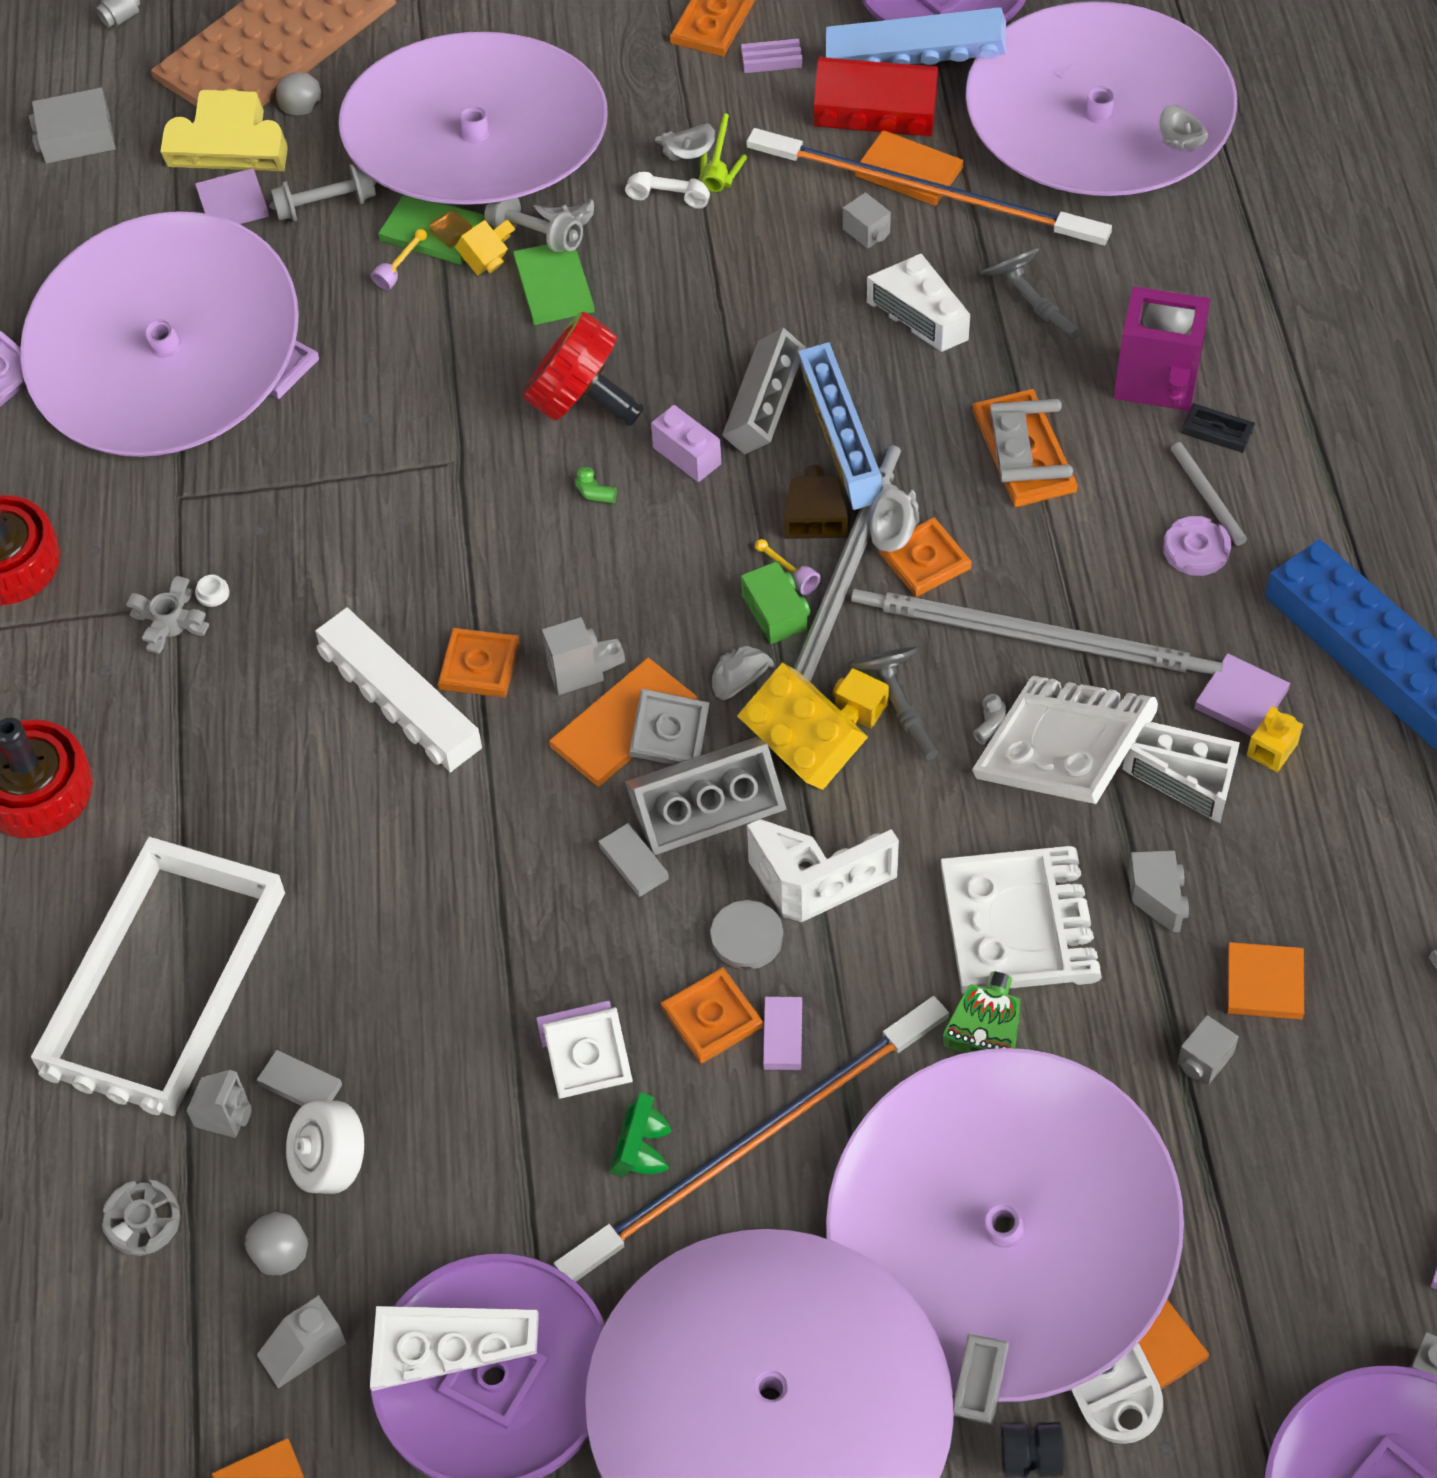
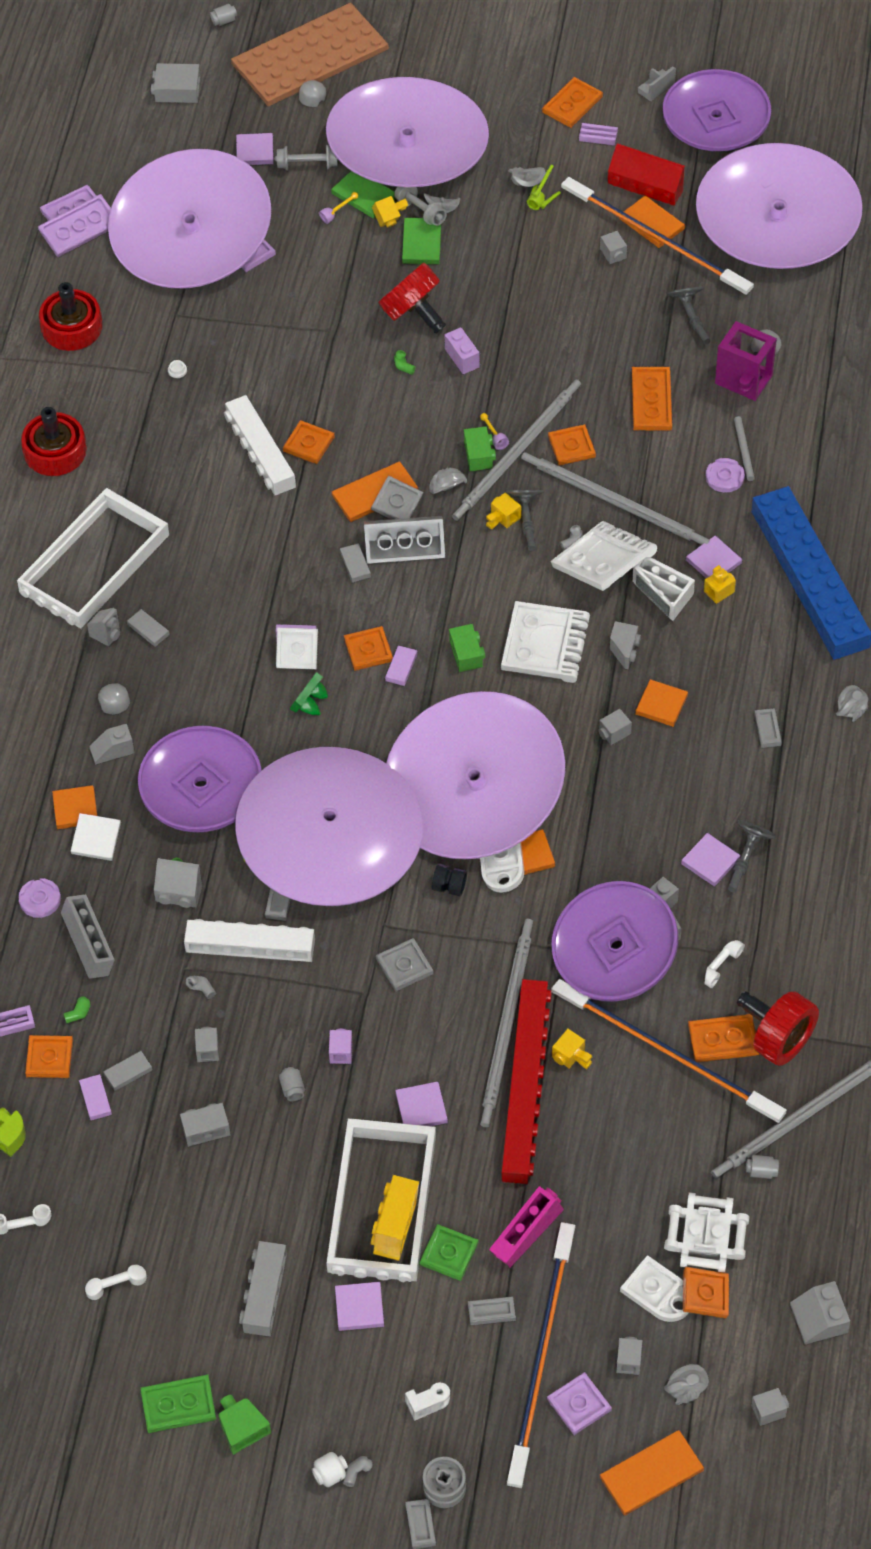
camera: 15 degrees right, 0 degrees up
(140, 1217) = (50, 670): light grey piece -> none
(167, 614) = (149, 376): light grey pin -> none
(225, 135) = (261, 109): light yellow brick -> none
(325, 1147) = (151, 659): white wheel -> none
(439, 1341) = (178, 757): white wing -> none
(450, 228) = (372, 195): clear orange tile -> none
(577, 657) = (360, 452): light grey hinge -> none
(607, 1242) = (461, 682): piece -> none
(640, 184) = (492, 194): white bar -> none
(746, 934) = (400, 613): light grey tile -> none
(763, 391) = (515, 331): light grey brick -> none
(802, 726) = (466, 515): yellow brick -> none
(806, 892) = (449, 596): white bracket -> none
(815, 507) = (519, 402): dark brown torso -> none
(841, 425) = (549, 361): light blue brick -> none
(888, 969) = (466, 647): none -> bright green brick
(893, 518) = (559, 418): light grey hat -> none
(921, 38) = (683, 145): light blue brick -> none
(921, 301) = (625, 302): white wedge -> none
(980, 1378) = (436, 842): light grey tile -> none
(985, 1017) = (506, 680): torso -> none
(1013, 441) = (645, 391): light grey plate -> none
(1181, 129) = (814, 236): light grey hat -> none
(1216, 431) = (763, 415): black tile -> none

